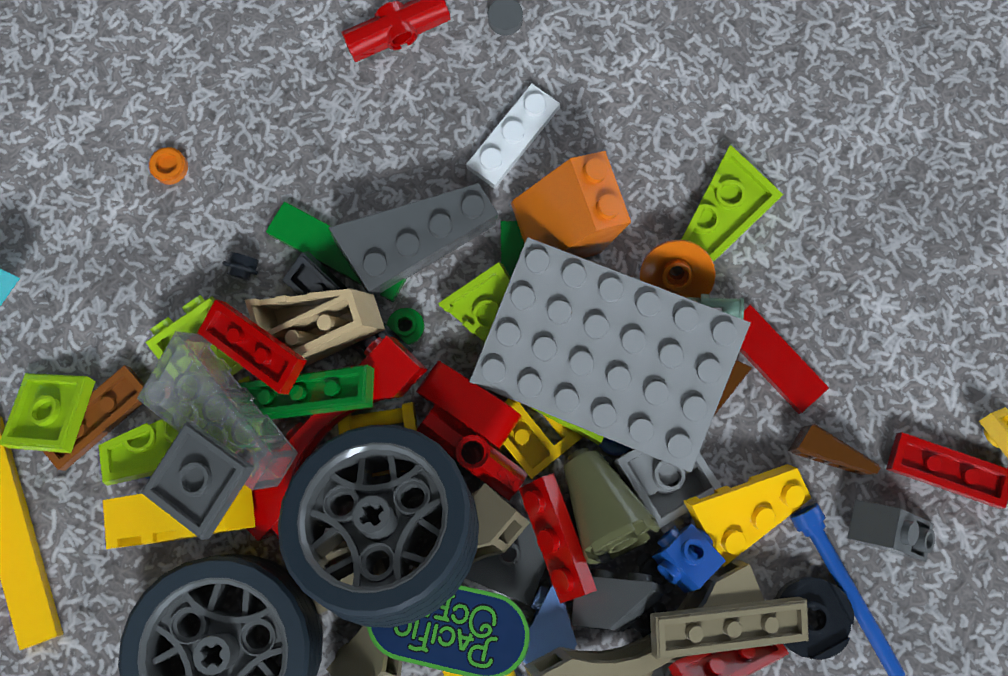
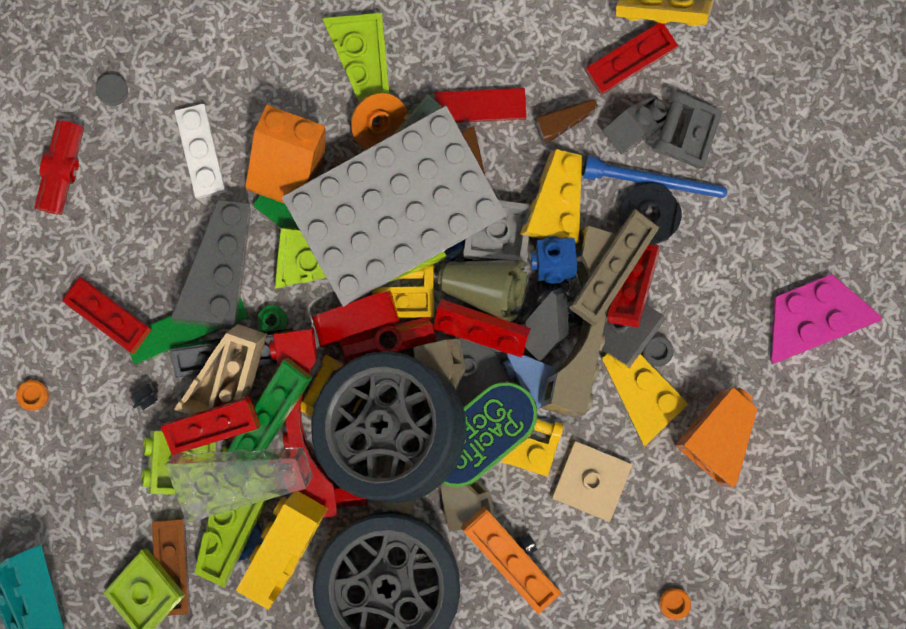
camera: 55 degrees left, 5 degrees up
(197, 480) = (273, 516): dark grey plate -> none
(292, 172) = (106, 315): none -> red tile
(934, 599) = (696, 133): none -> dark grey plate

